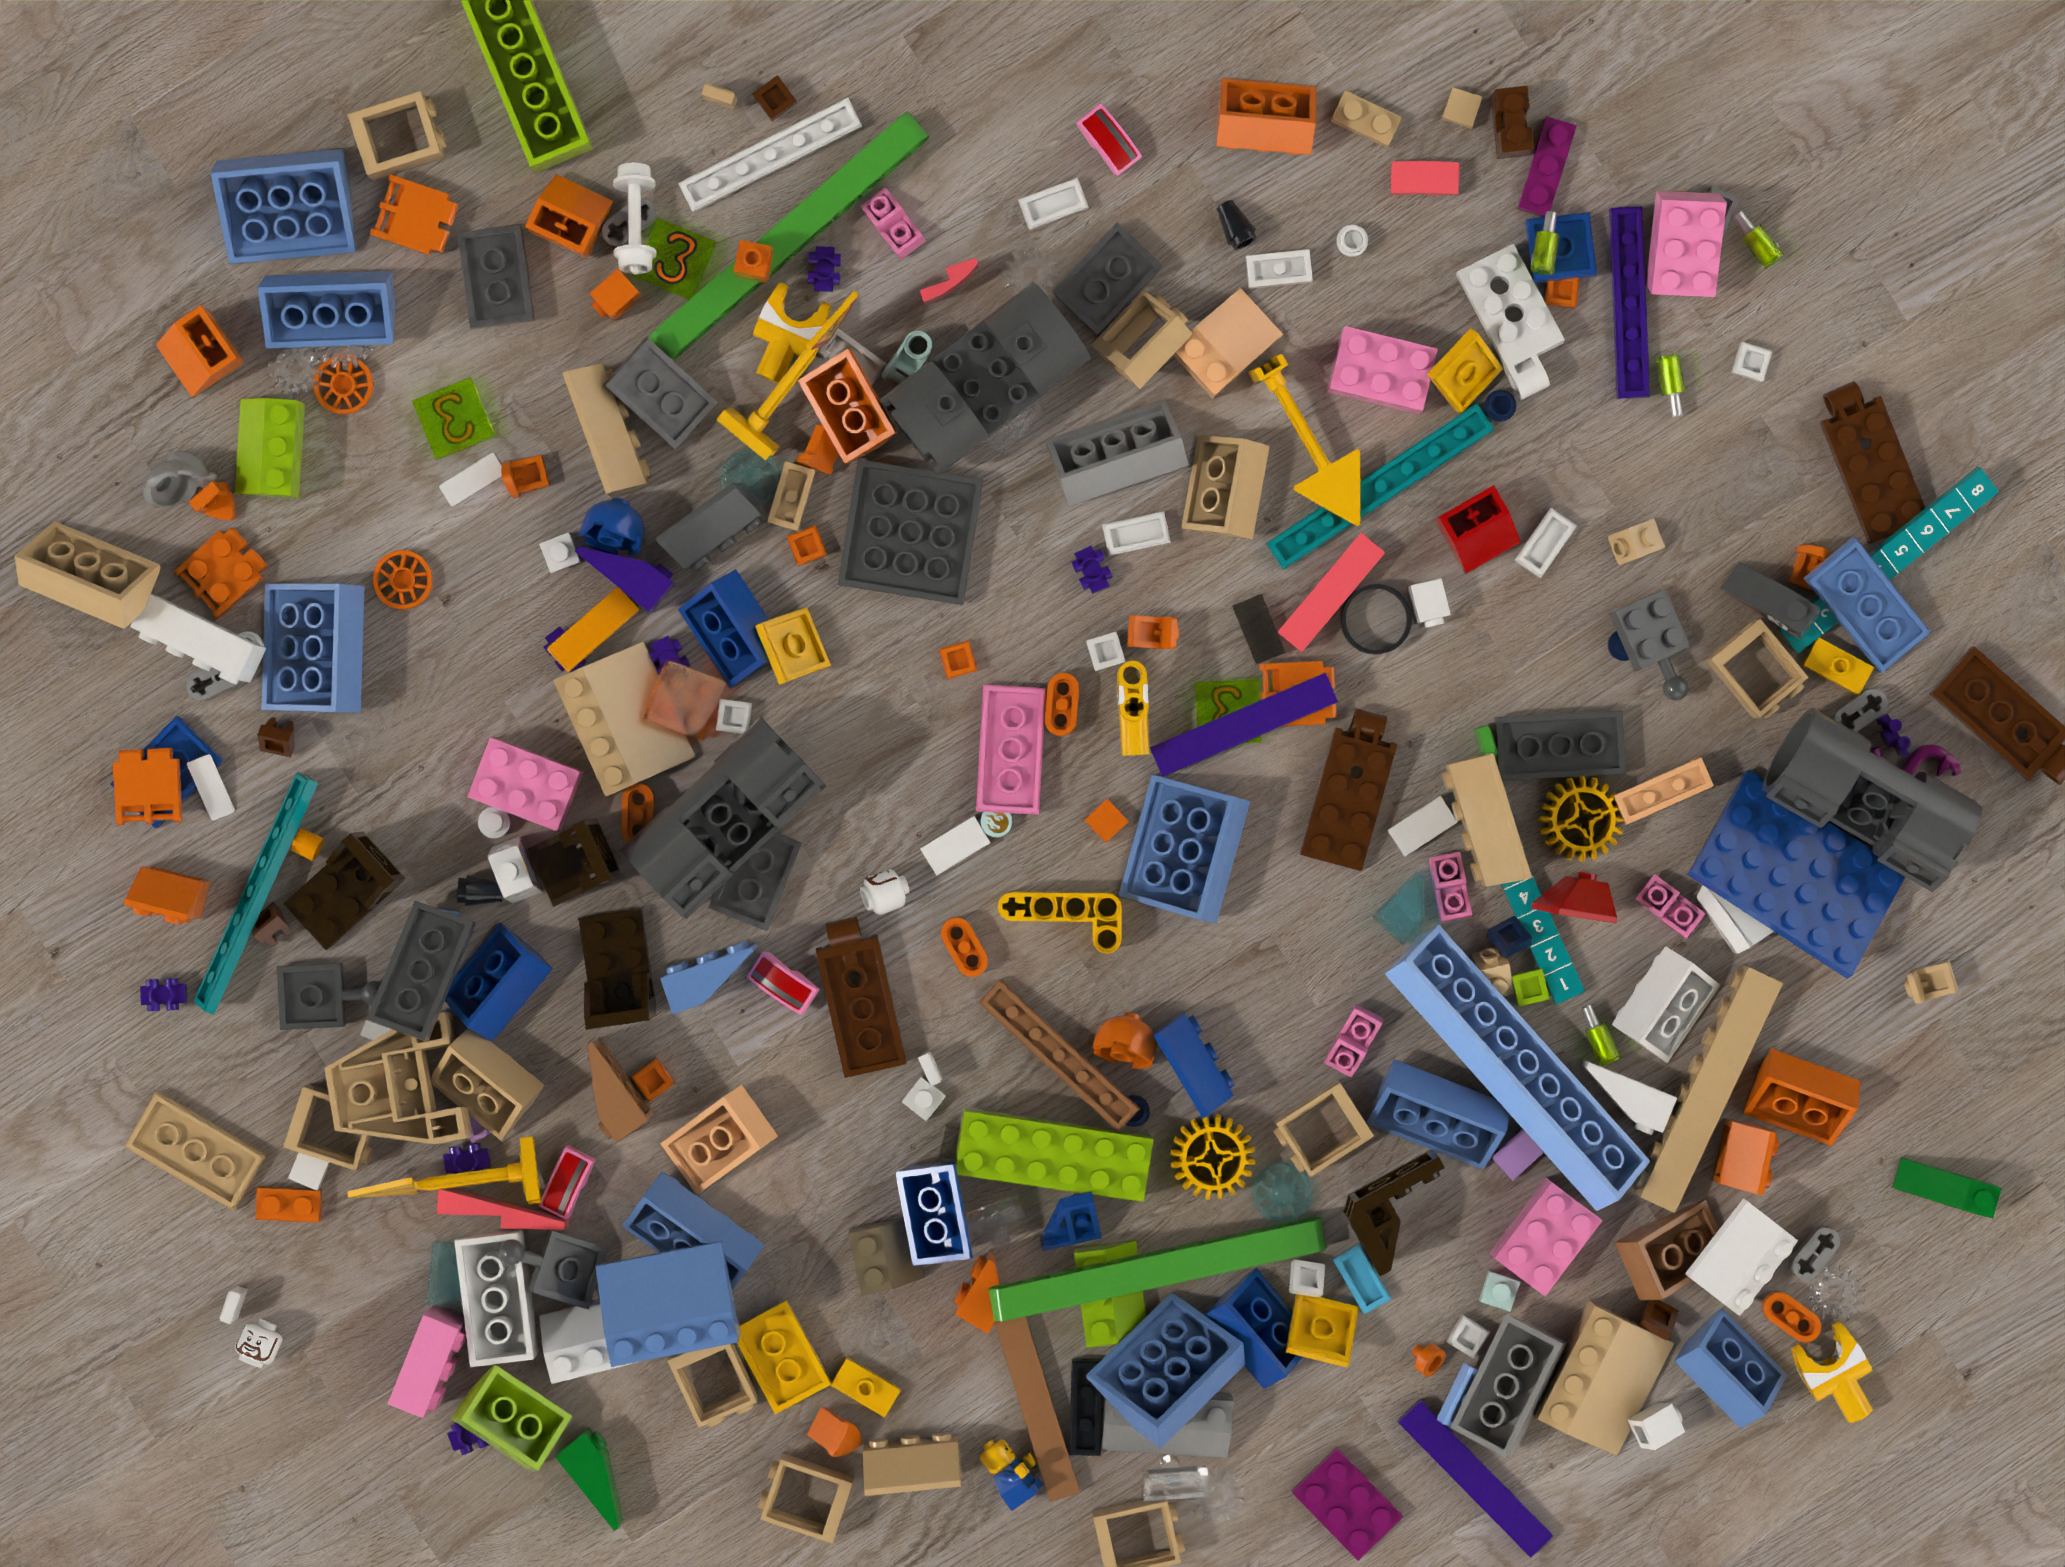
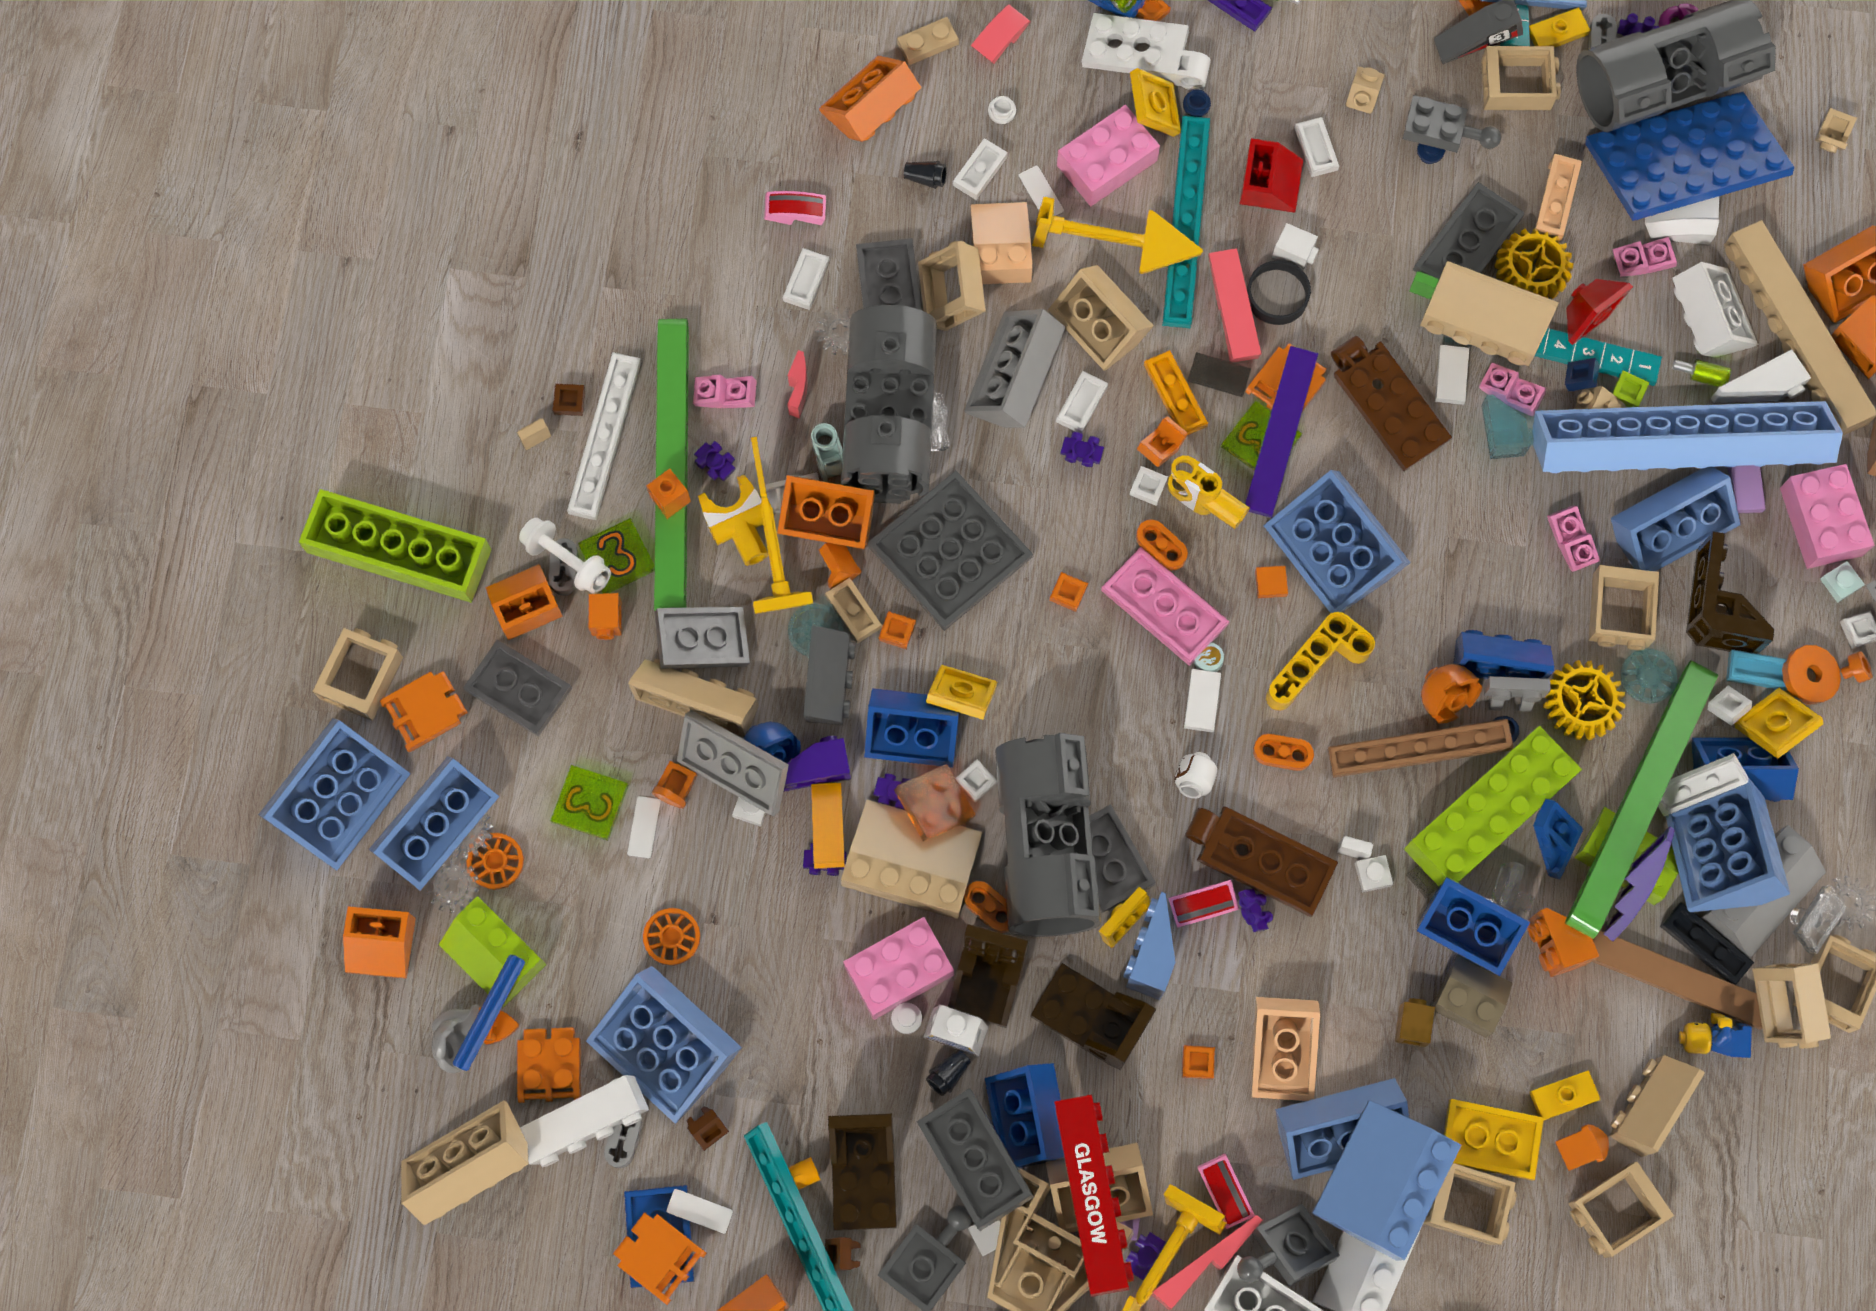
camera: 50 degrees left, 15 degrees down
(212, 493) = (488, 1012): none -> blue axle
(463, 1086) = (1092, 1197): none -> red brick
(573, 511) = (732, 763): none -> light grey tile
(616, 1097) = (1192, 1094): medium nougat slope -> none
(718, 929) = (1124, 917): none -> yellow plate
(809, 1026) = (1252, 912): none -> dark purple piece
(824, 1226) = (1415, 1023): none -> pearl gold brick
(1077, 1320) = (1642, 879): none -> slope
(1080, 1512) = (1775, 1005): none -> tan window
(1179, 1105) = (1504, 688): none -> light grey plate
(1210, 606) = (1175, 392): none -> light orange tile
(1212, 1308) = (1702, 784): none -> white tile
(1304, 338) = (1038, 188): none -> white sticker
(1402, 1337) = (1825, 669): none -> orange tile

